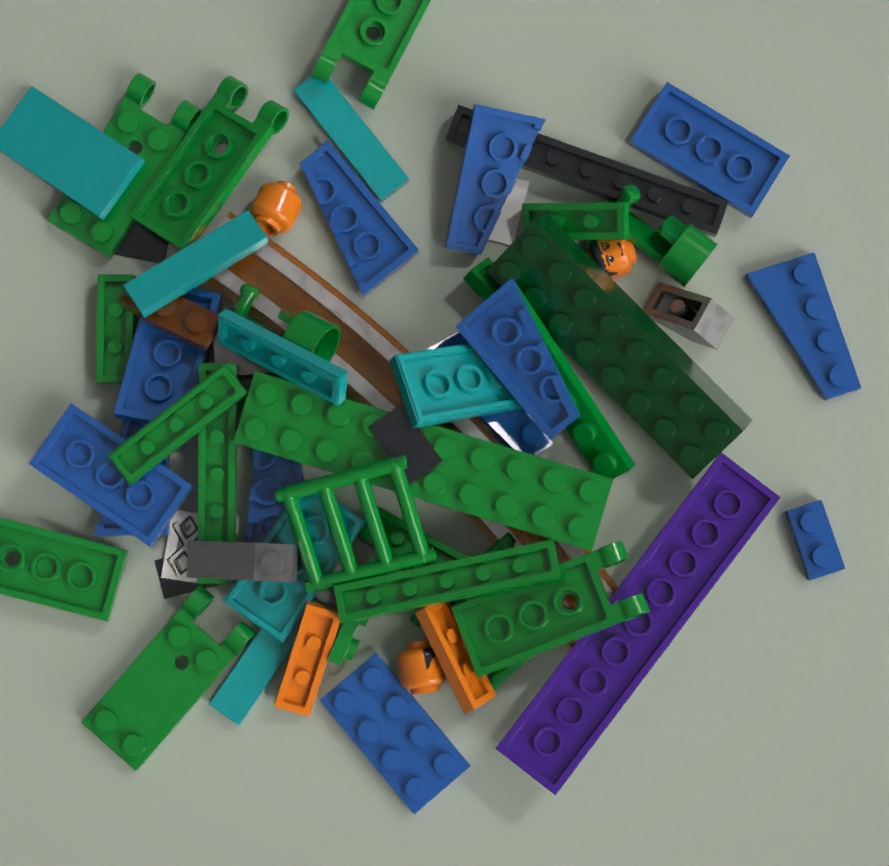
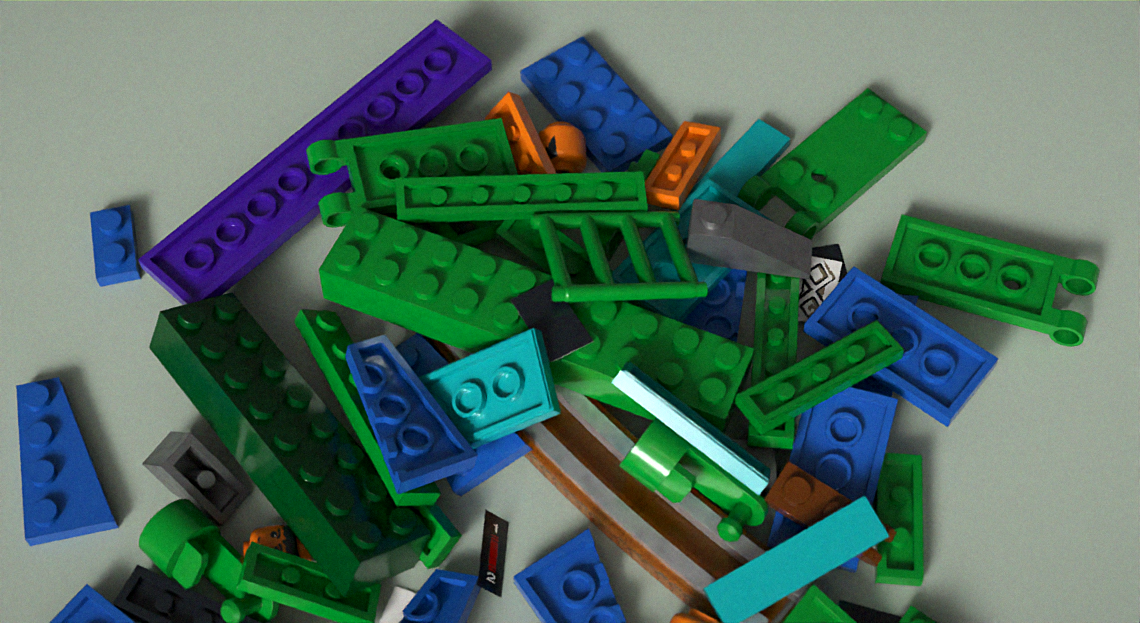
camera: 170 degrees left, 25 degrees down
(437, 273) = (493, 553): none -> black sticker

